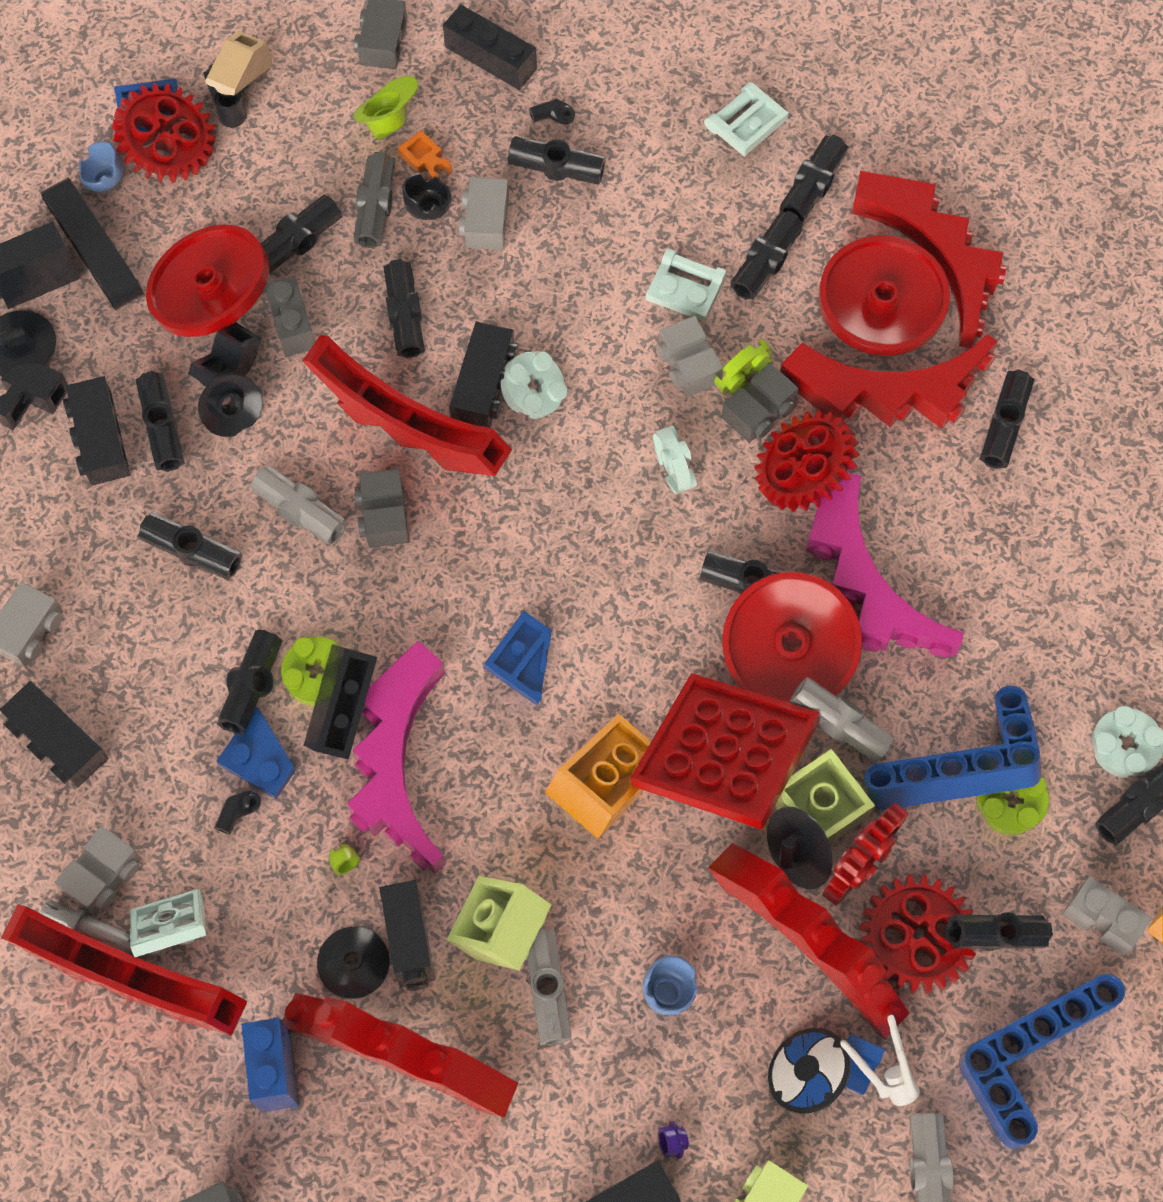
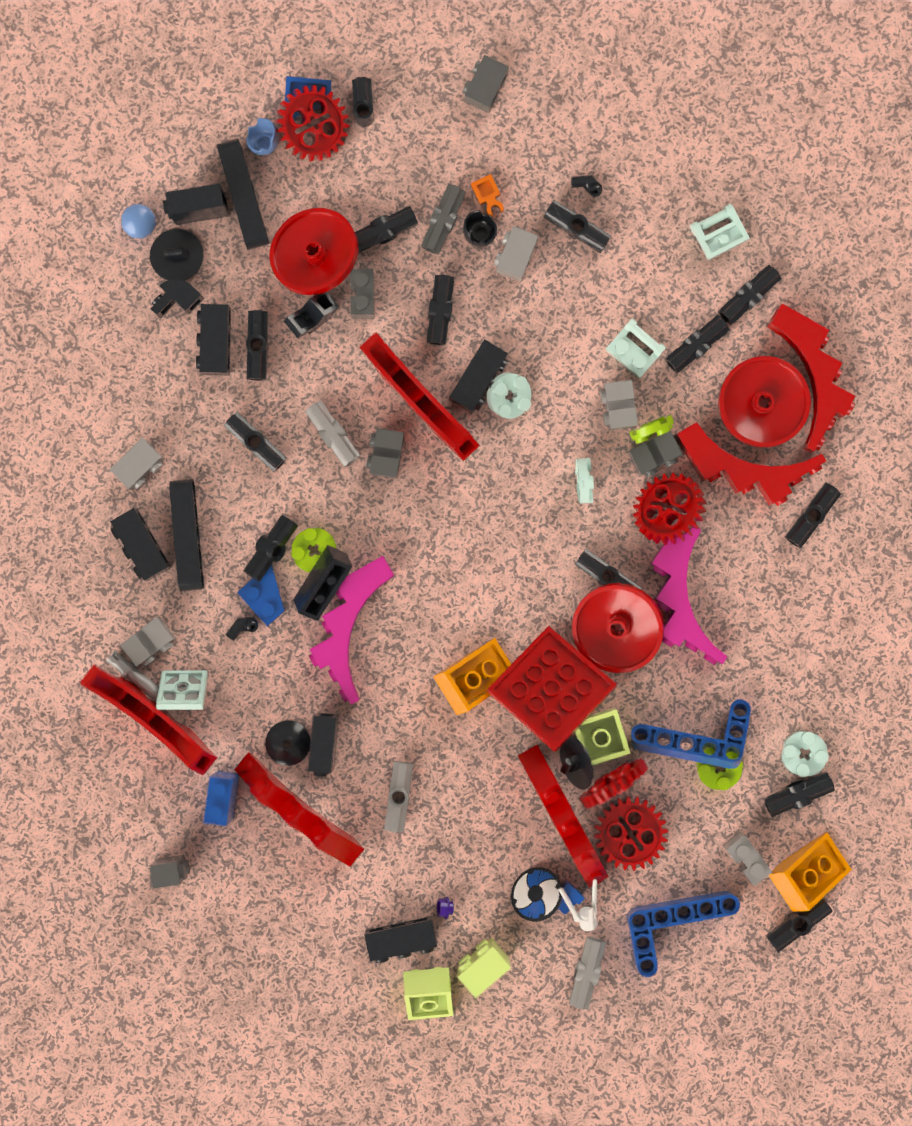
camera: 15 degrees right, 20 degrees up
(120, 703) = (186, 535): none -> black beam
(238, 413) = (305, 350): black dish -> none
(239, 63) = (376, 89): tan slope -> none
(343, 859) = (298, 680): lime hinge -> none
(387, 108) = (471, 148): lime piece -> none
(490, 47) = (558, 120): black brick -> none
(499, 922) = (380, 753): yellowish green brick -> none
(522, 657) = (446, 582): blue wing -> none
(670, 985) = (471, 819): medium blue hair -> none
(843, 719) = (631, 688): light grey piece -> none
(998, 931) = (677, 850): black piece -> none

